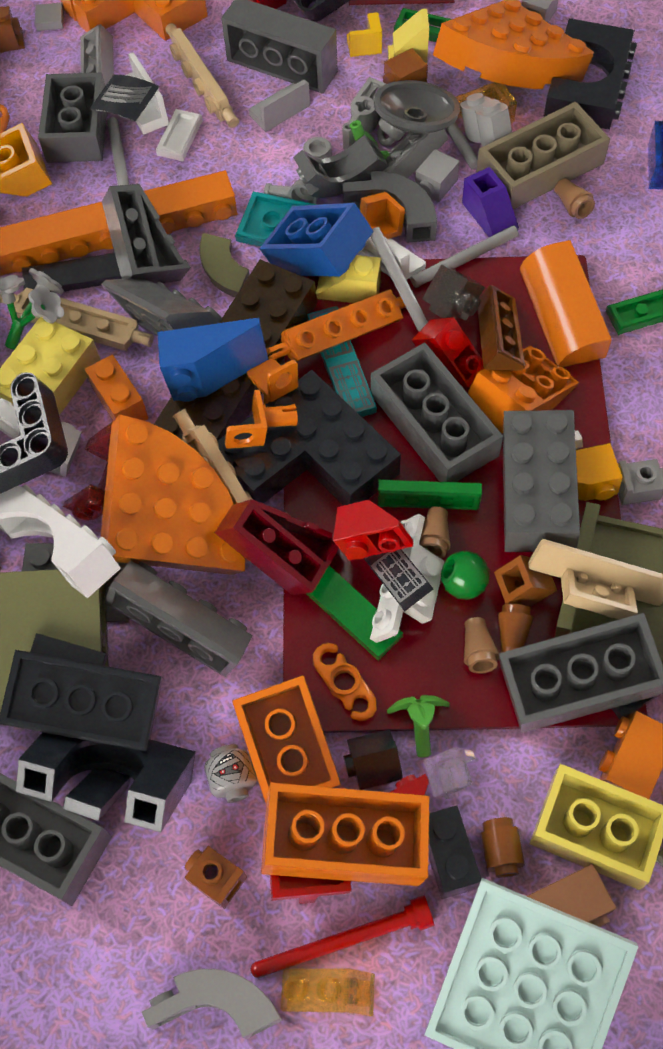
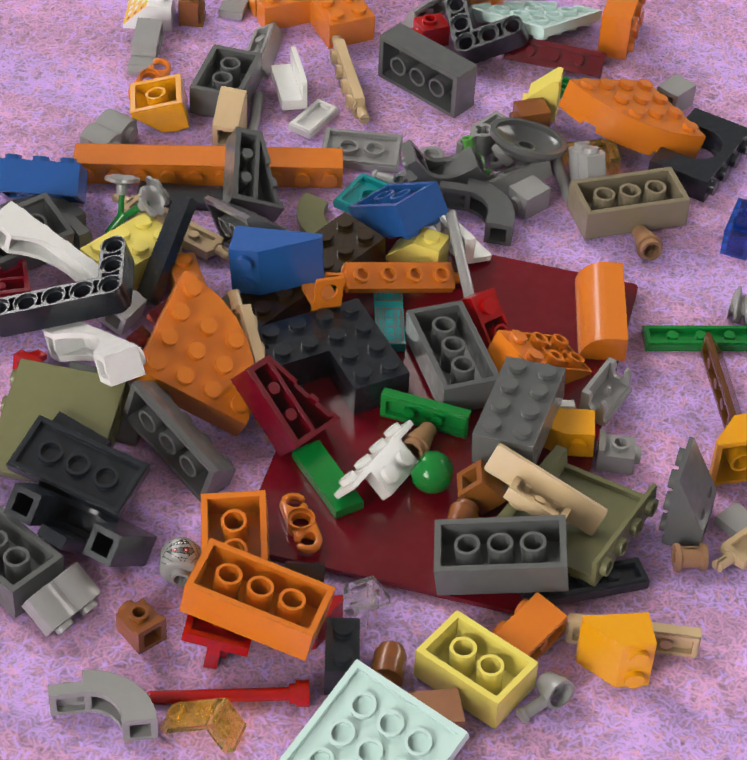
camera: 10 degrees right, 20 degrees down
(82, 364) = (166, 249): none -> black tile
(93, 162) = (229, 113): none -> tan slope
(118, 875) = (62, 599): none -> light grey brick
(125, 96) = (276, 74): black sticker -> none
(245, 159) = (366, 149): none -> light grey tile
(263, 418) = (303, 314): orange bracket -> none
(281, 105) = (412, 116): light grey panel -> none
(366, 41) = (507, 86): yellow panel -> none
(368, 530) = (359, 412): red slope -> none
(383, 212) = (469, 211): orange panel -> none
(400, 577) = (367, 438): black tile -> none
(421, 713) = (356, 553): bright green plant -> none
(453, 294) = (503, 273): clear smoke brick -> none
(465, 255) = (528, 259): light grey bar -> none
(479, 648) = (423, 526): medium nougat cone -> none
(488, 202) = (566, 226): dark purple slope -> none
(500, 331) = (534, 311): reddish brown slope -> none
(606, 411) = (606, 392): none -> light grey hinge

